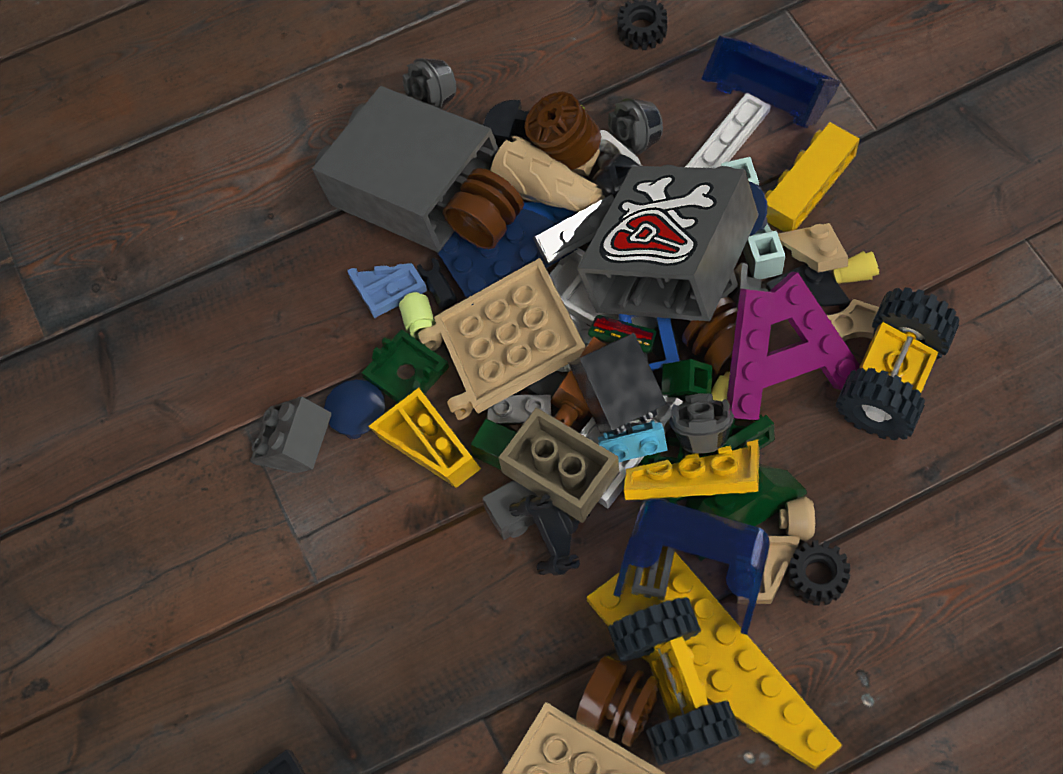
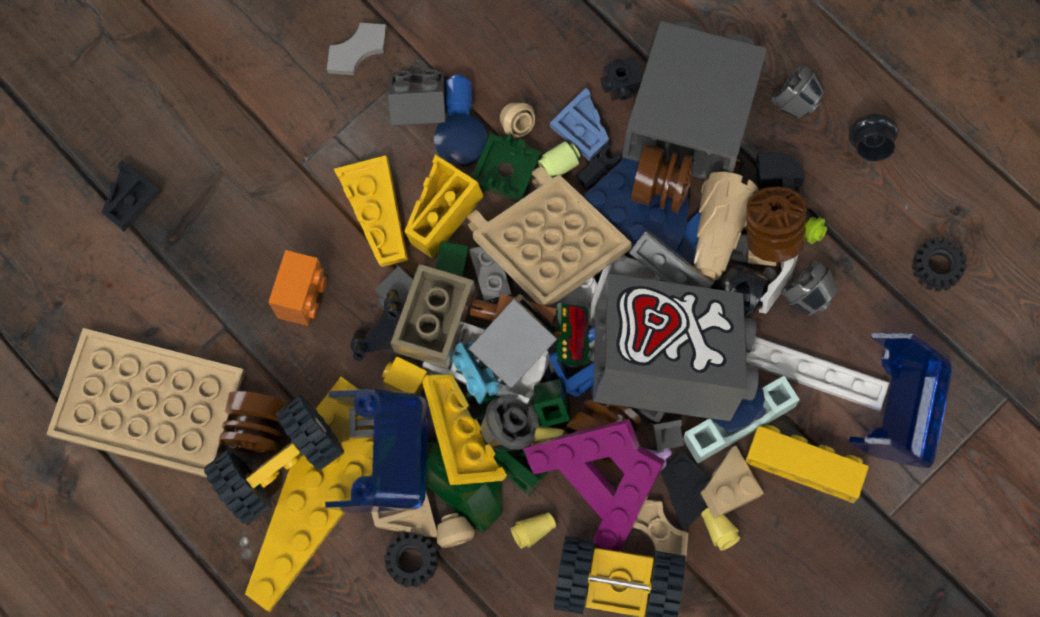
camera: 70 degrees right, 10 degrees up
(201, 476) = (348, 55): none -> light grey tile
(305, 388) = (458, 95): none -> blue brick
(352, 232) = (621, 79): none -> black brick
(355, 343) = (517, 119): none -> tan cone
(396, 512) = (374, 200): none -> yellow wing
(472, 610) = (297, 288): none -> orange brick
(499, 37) = (874, 137): none -> black piece
(612, 525) = (404, 377): none -> yellow brick
(815, 444) = (531, 530): none -> light yellow cone

